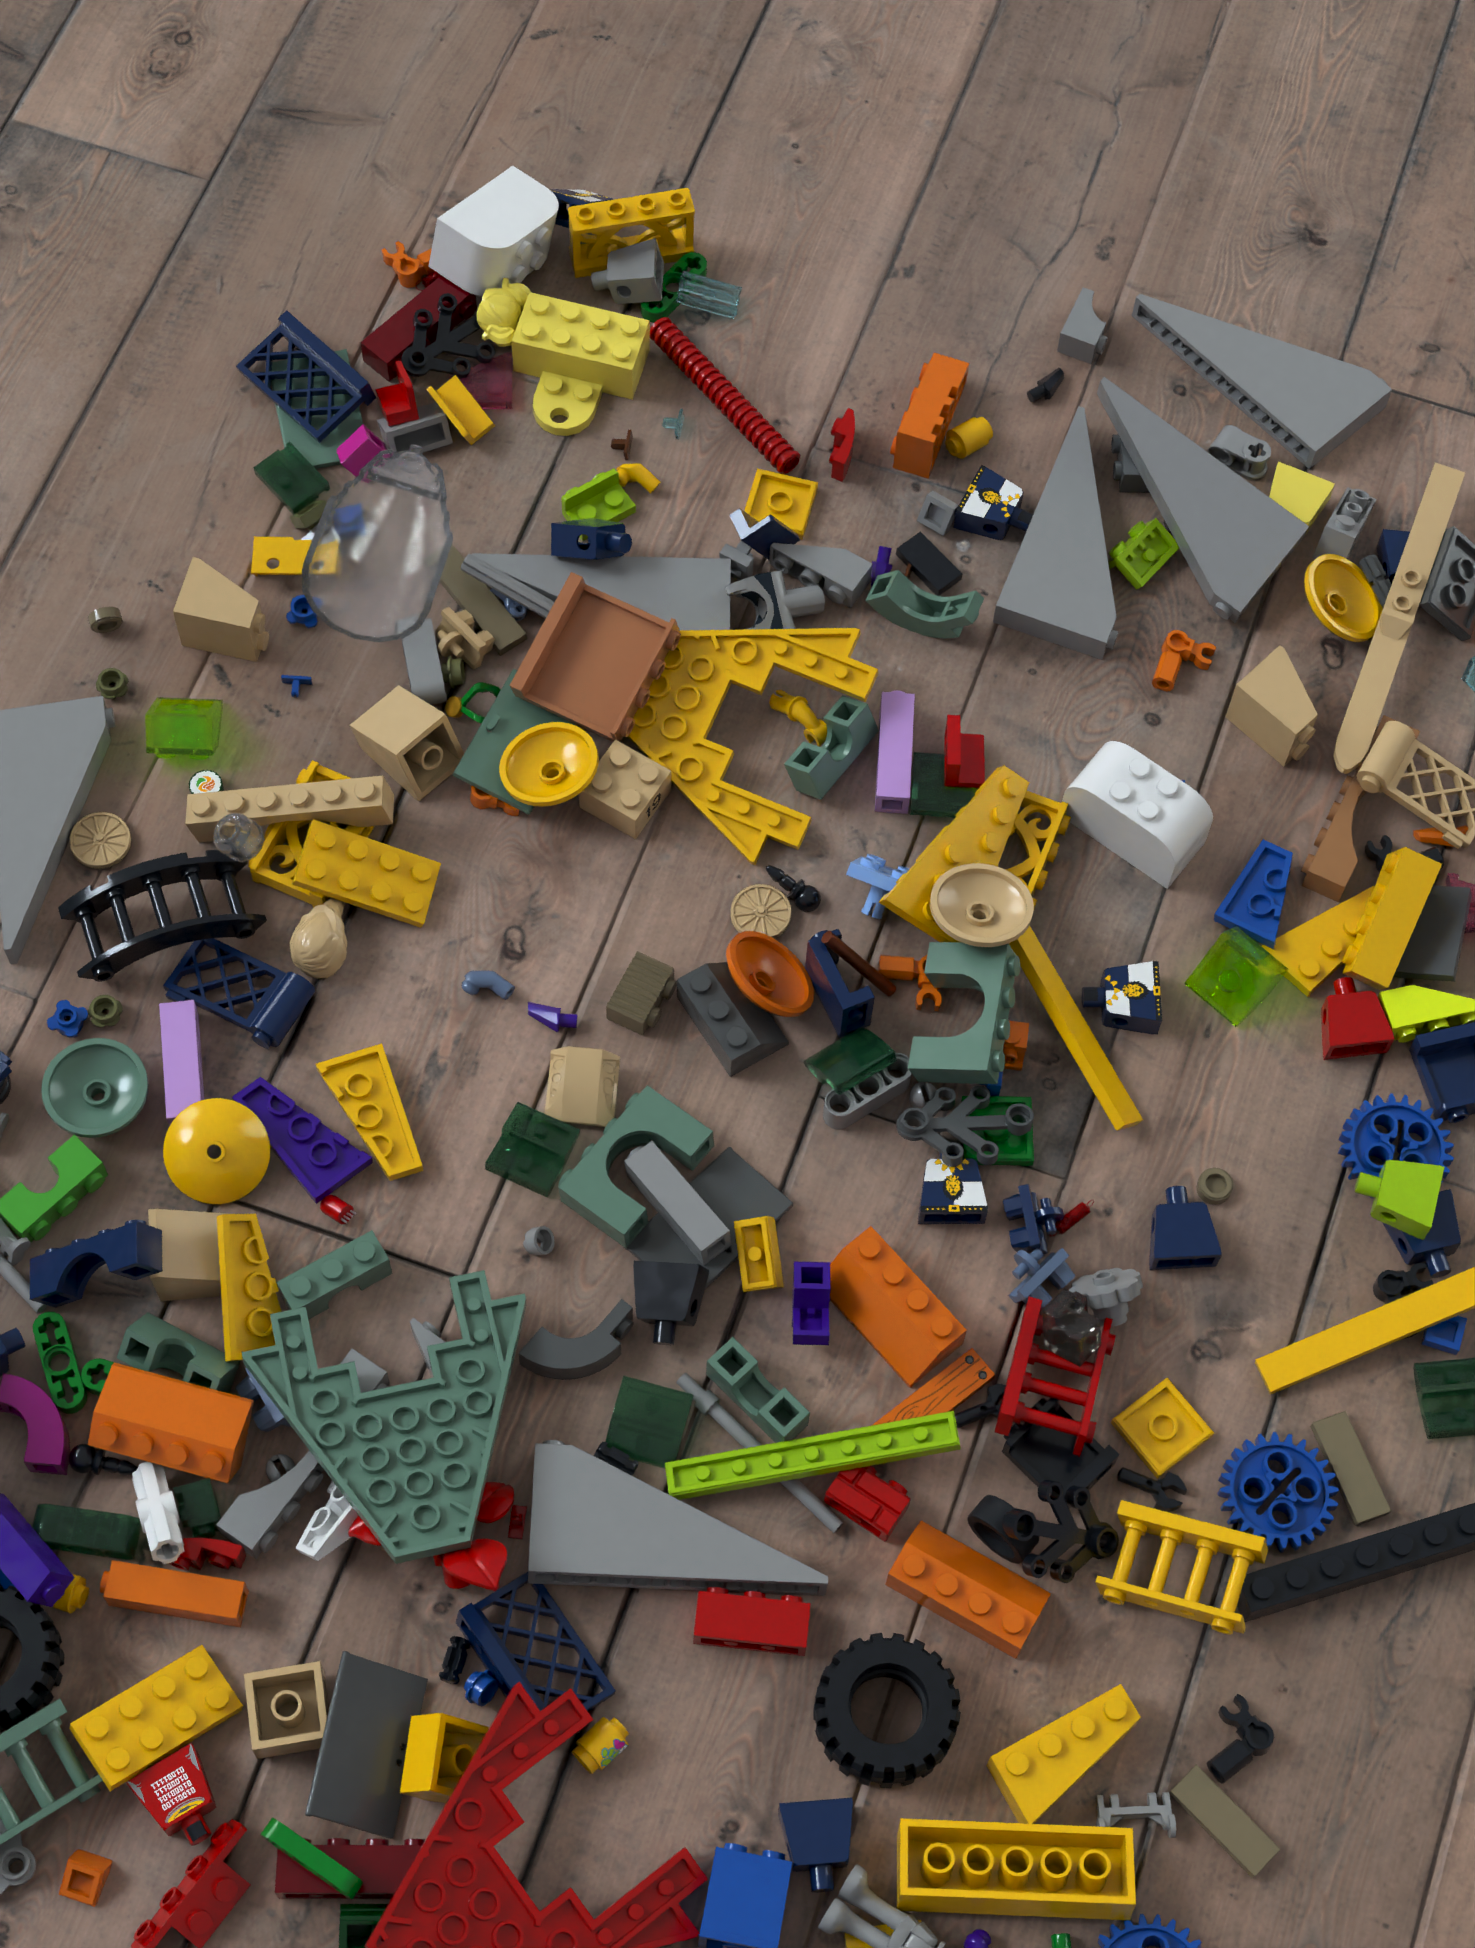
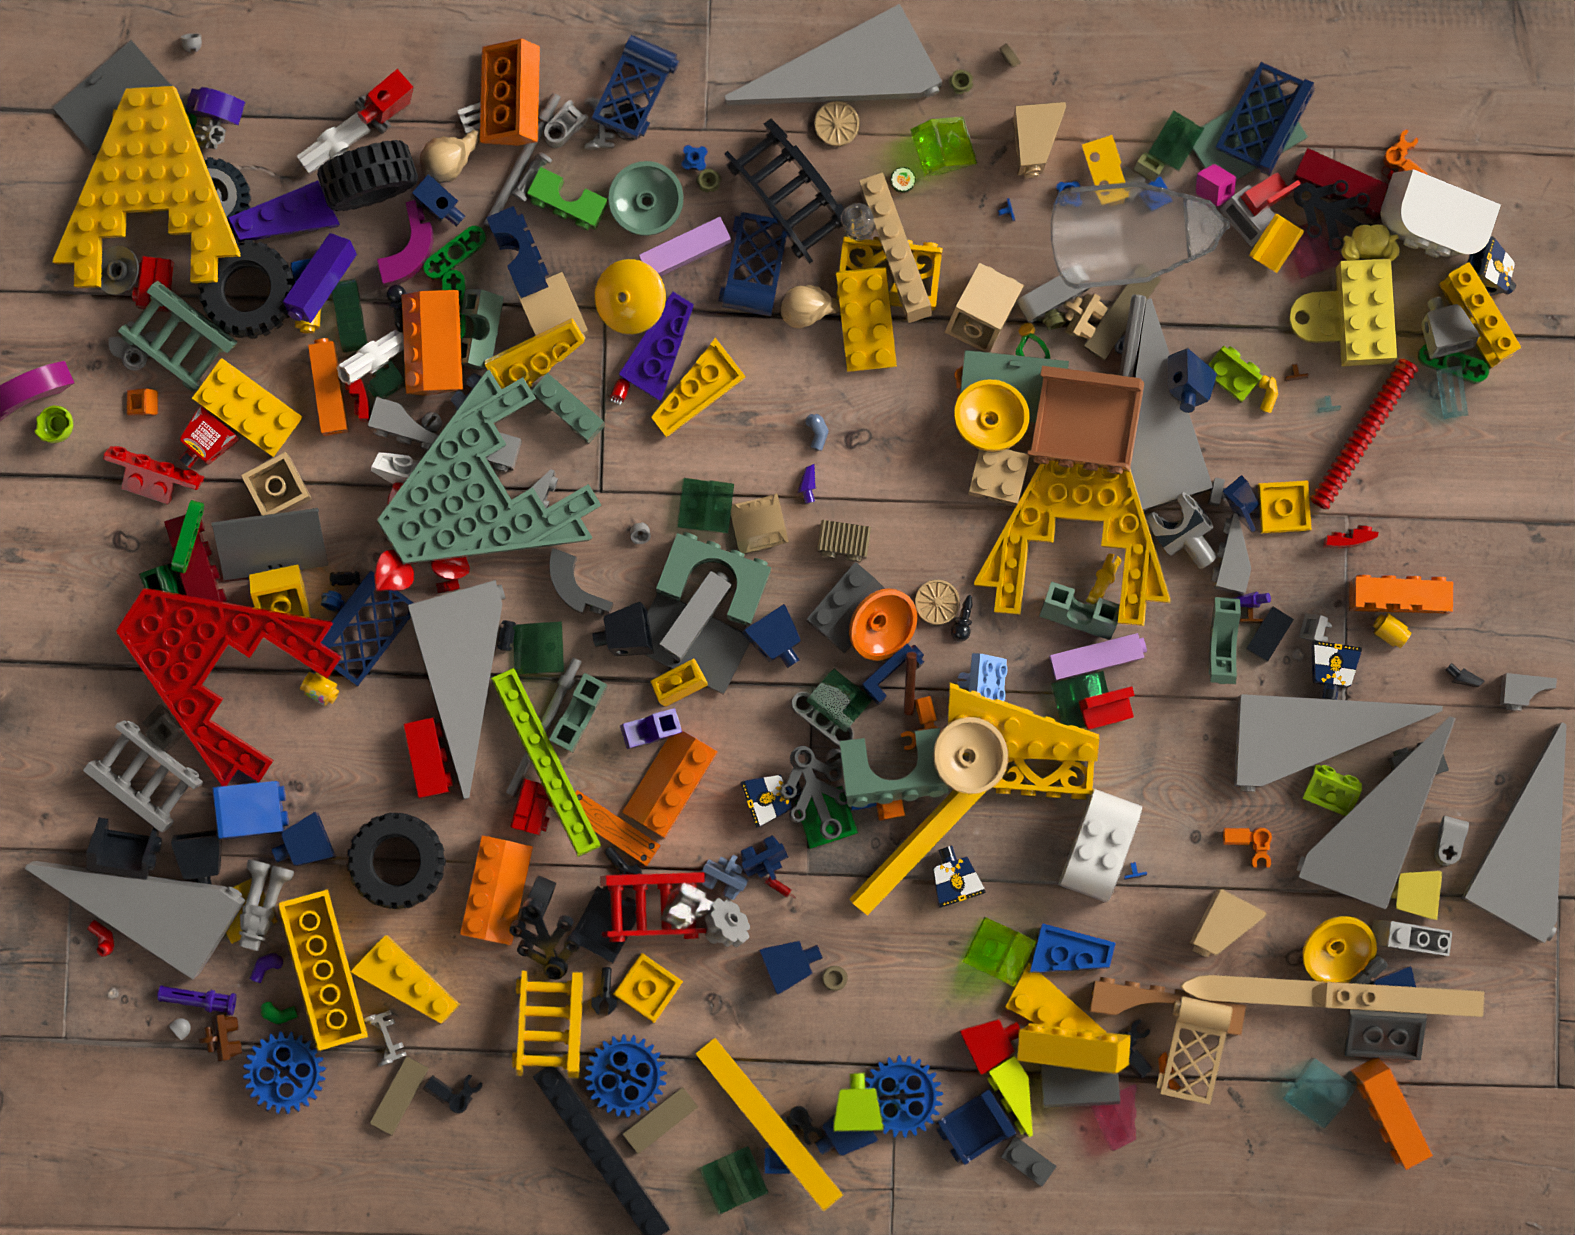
camera: 75 degrees right, 20 degrees up
(738, 1113) = (775, 636): none -> dark blue torso

